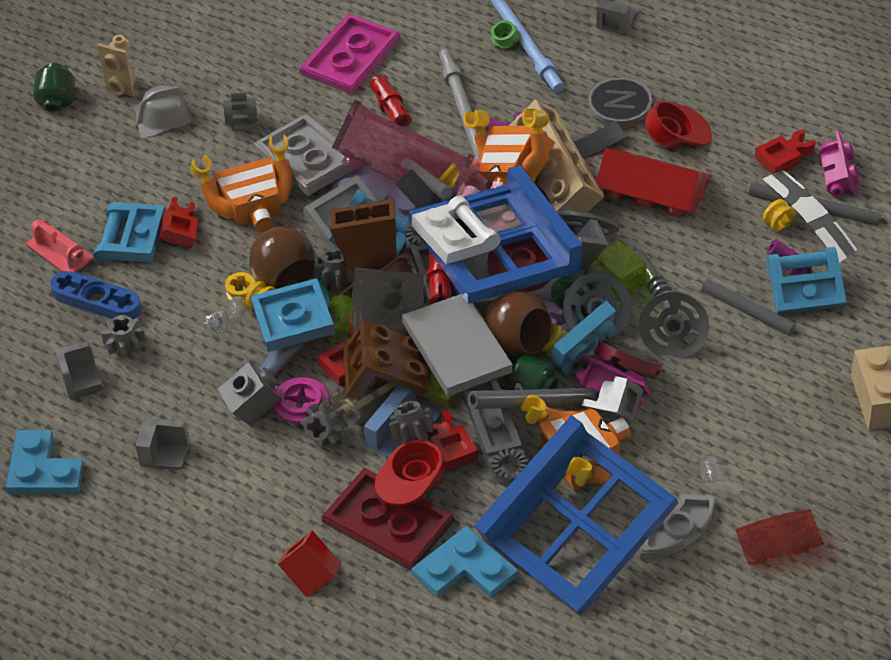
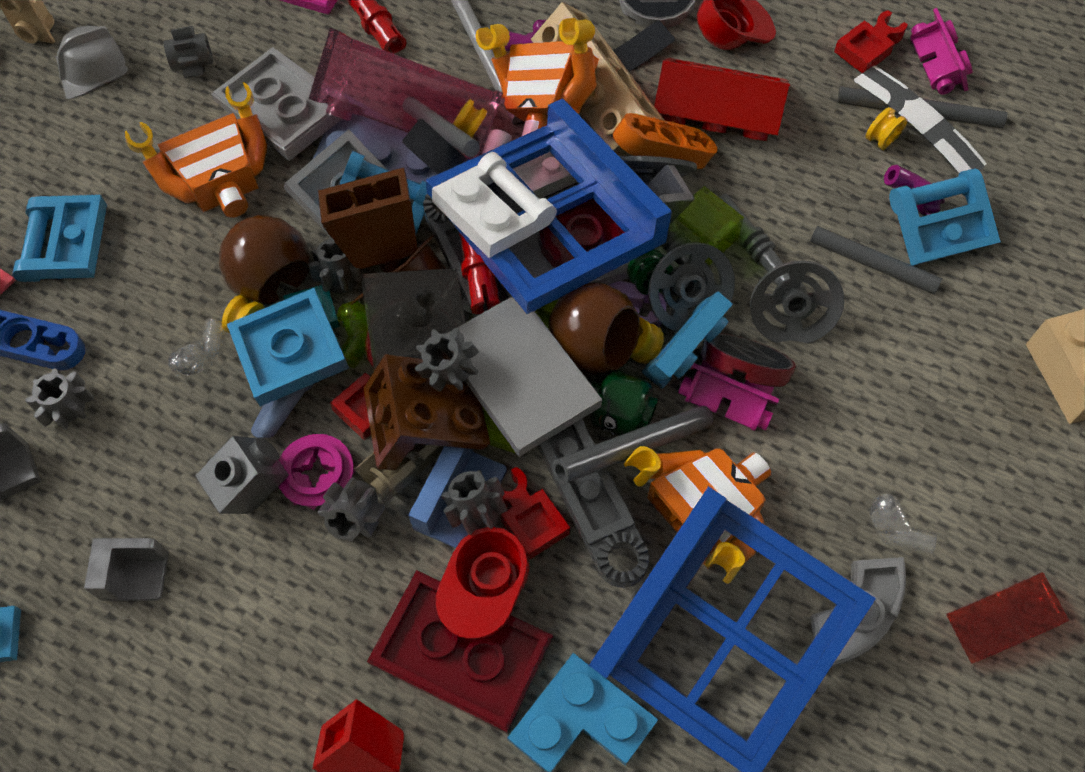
camera: 10 degrees left, 15 degrees up
(179, 225) = (123, 219): red plate -> none
(234, 281) = (207, 293): yellow bush -> none
(405, 324) = (449, 348): none -> dark grey gear
(584, 199) = (661, 138): none -> orange beam
(617, 399) = (742, 426): flat silver panel -> none

